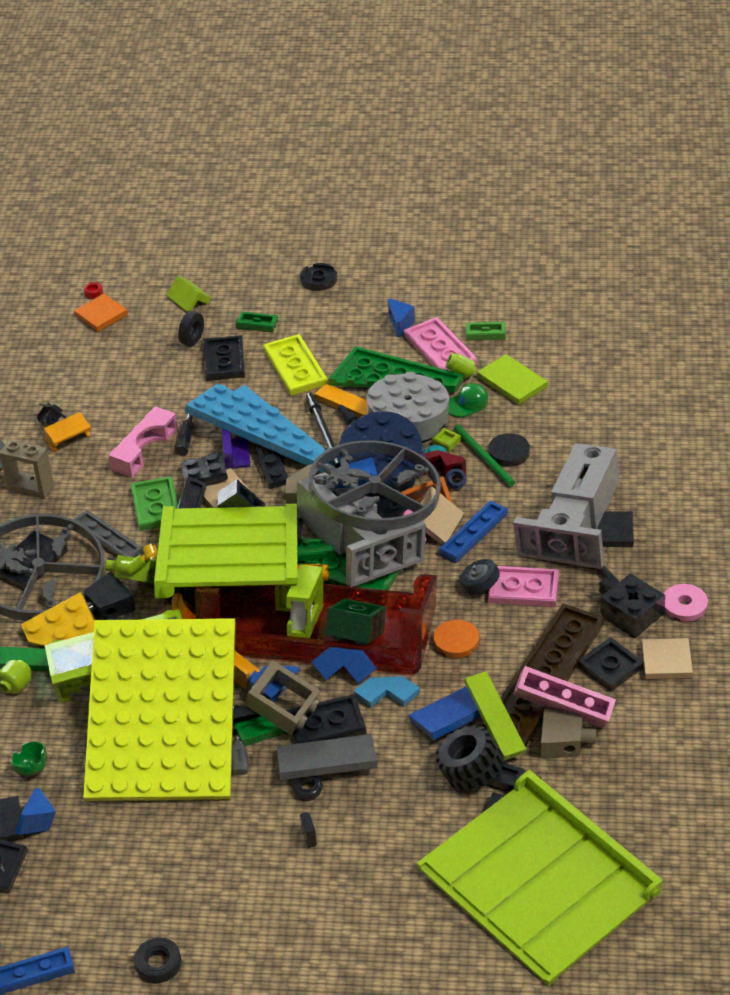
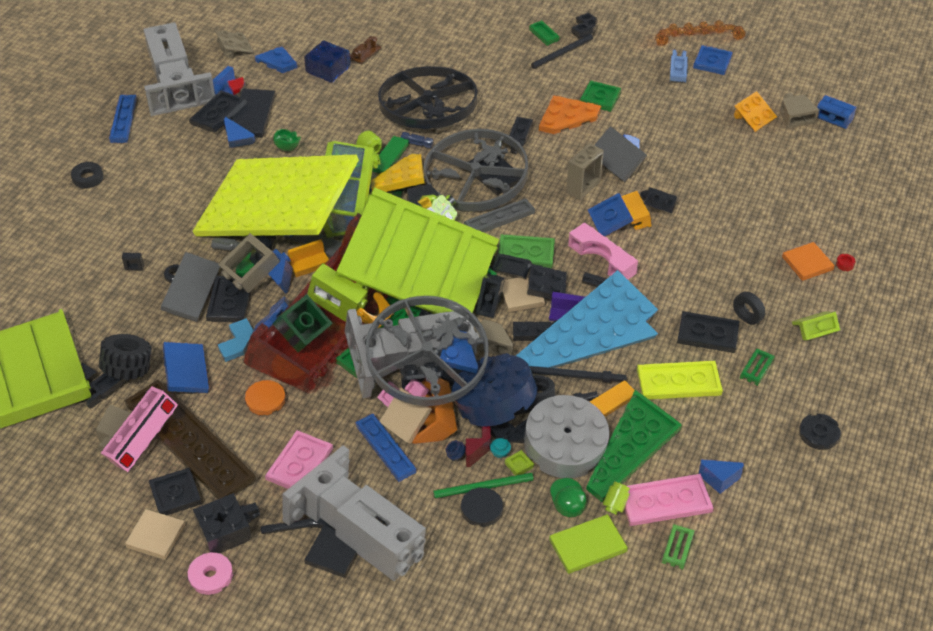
camera: 105 degrees right, 5 degrees up
(83, 446) = (610, 215): none -> blue tile
(479, 576) = (320, 427): black wheel -> none
(495, 715) = (161, 380): lime tile -> none

